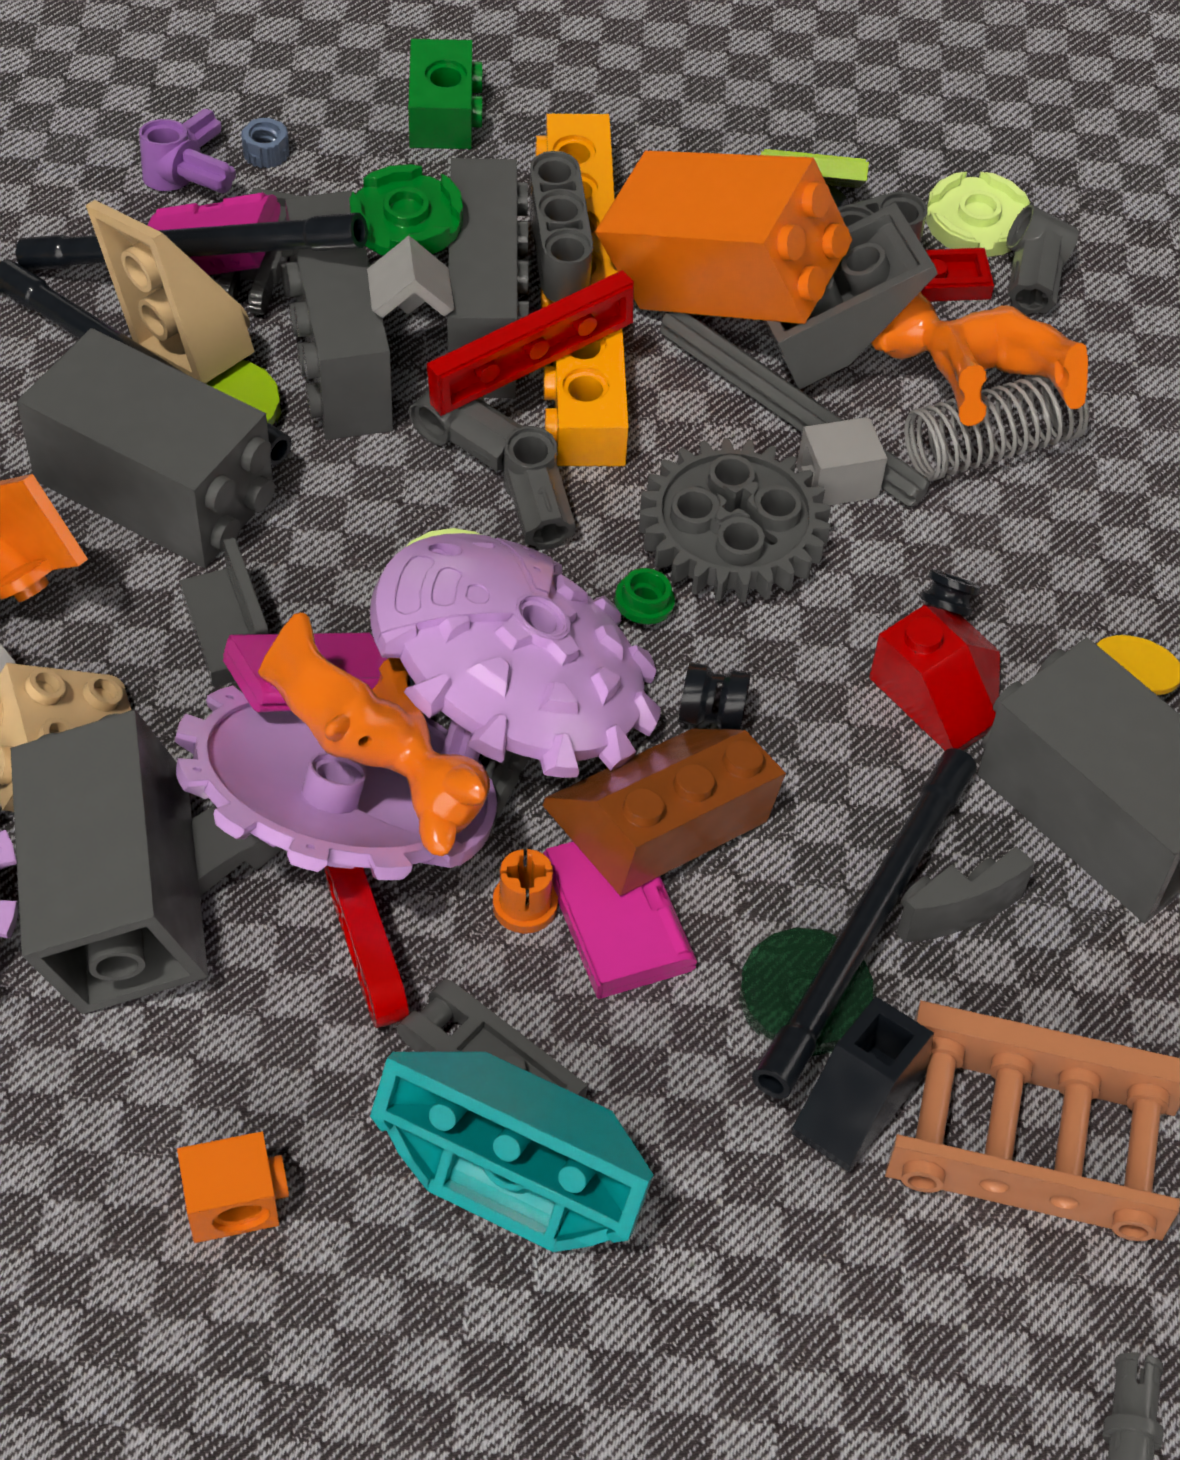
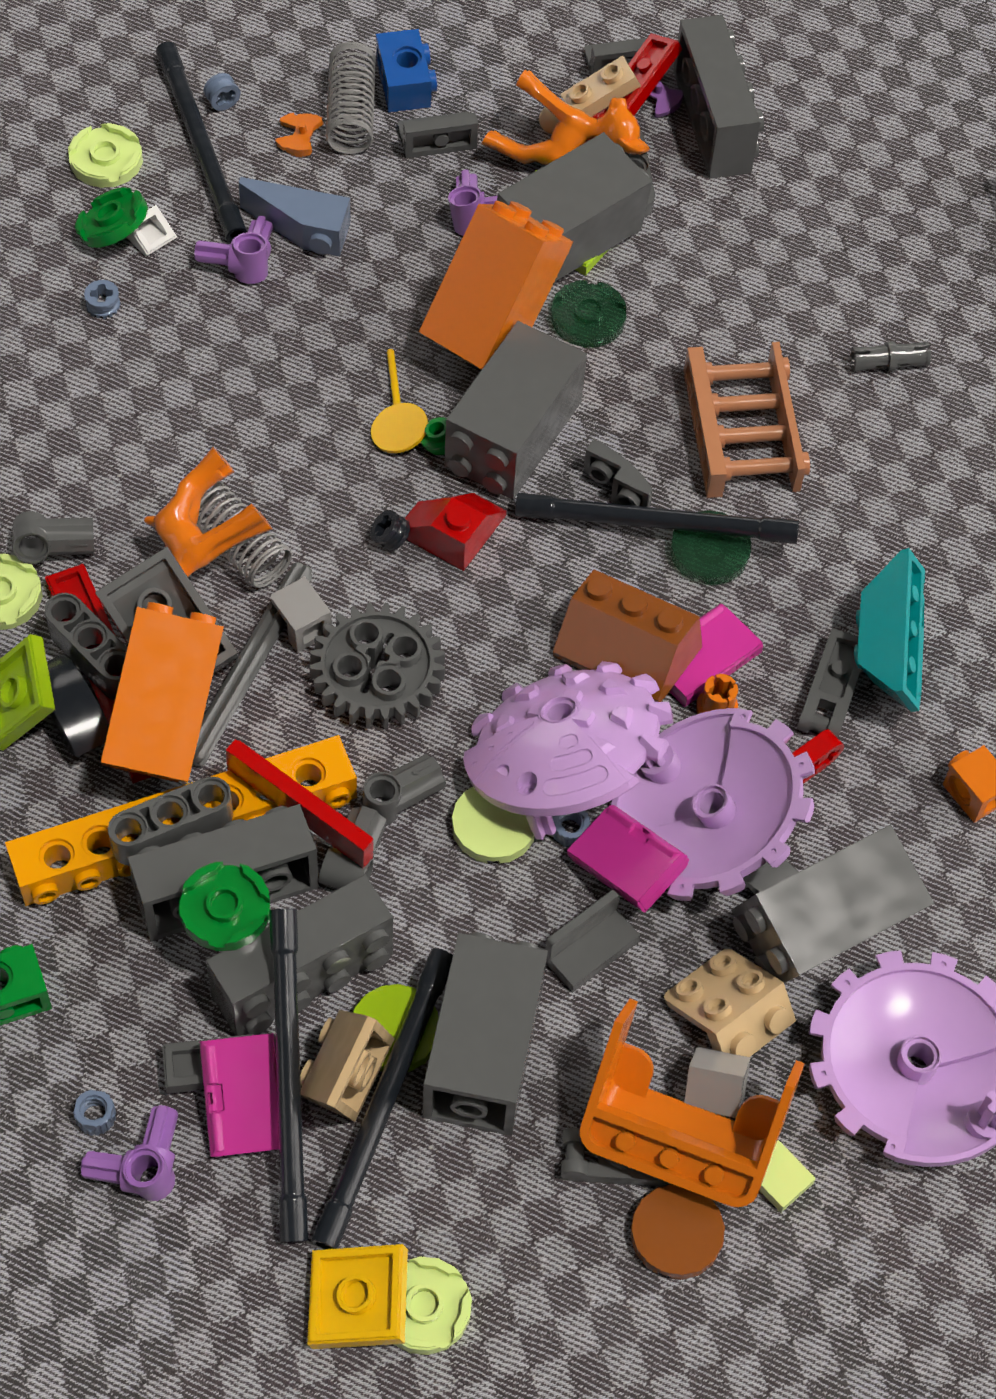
camera: 110 degrees left, 5 degrees up
(376, 730) = (690, 768): orange animal -> none
(409, 278) = (303, 878): light grey panel -> none
(645, 596) = (463, 693): green plate -> none
(700, 696) = (532, 637): black wheel -> none
(864, 1083) = (766, 491): black slope -> none

